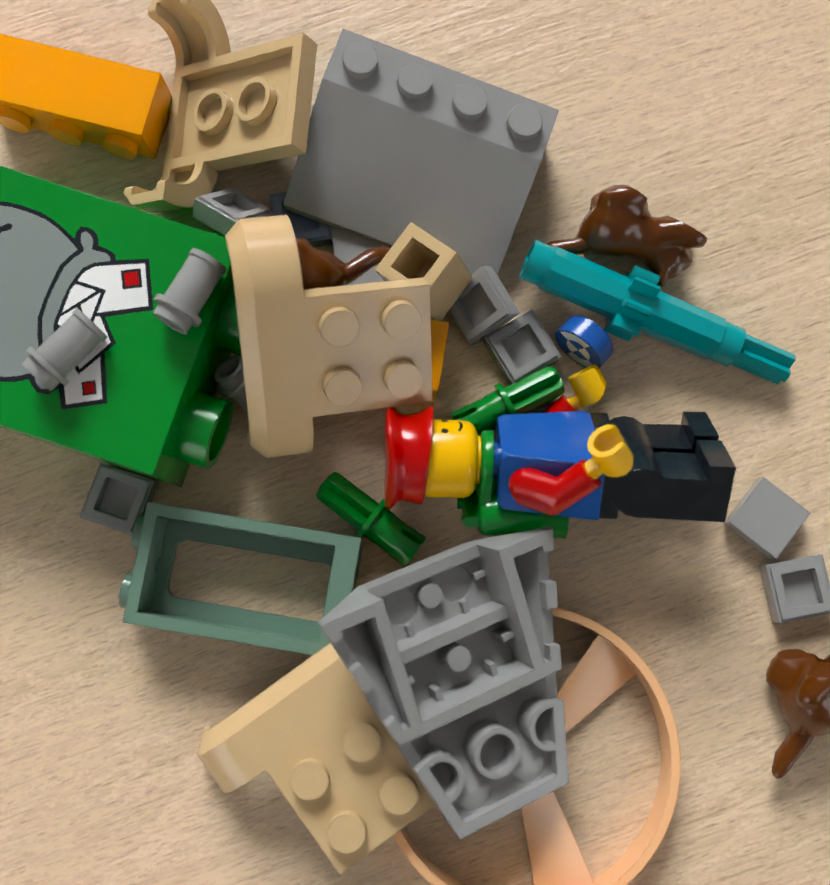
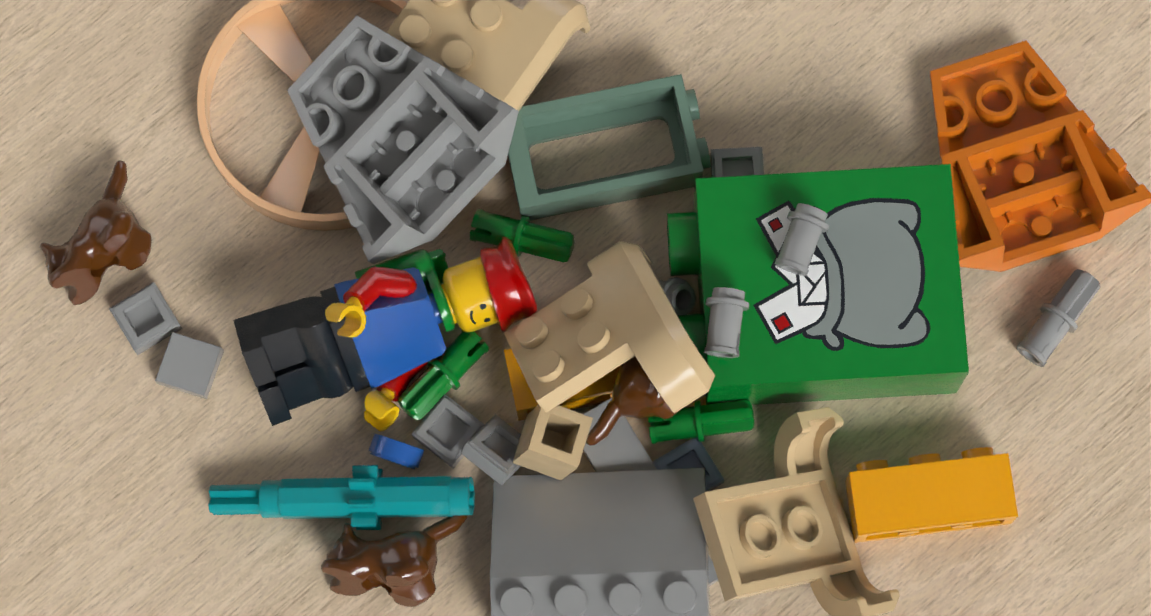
camera: 165 degrees right, 5 degrees down
(225, 207) = (744, 443): light grey tile -> none

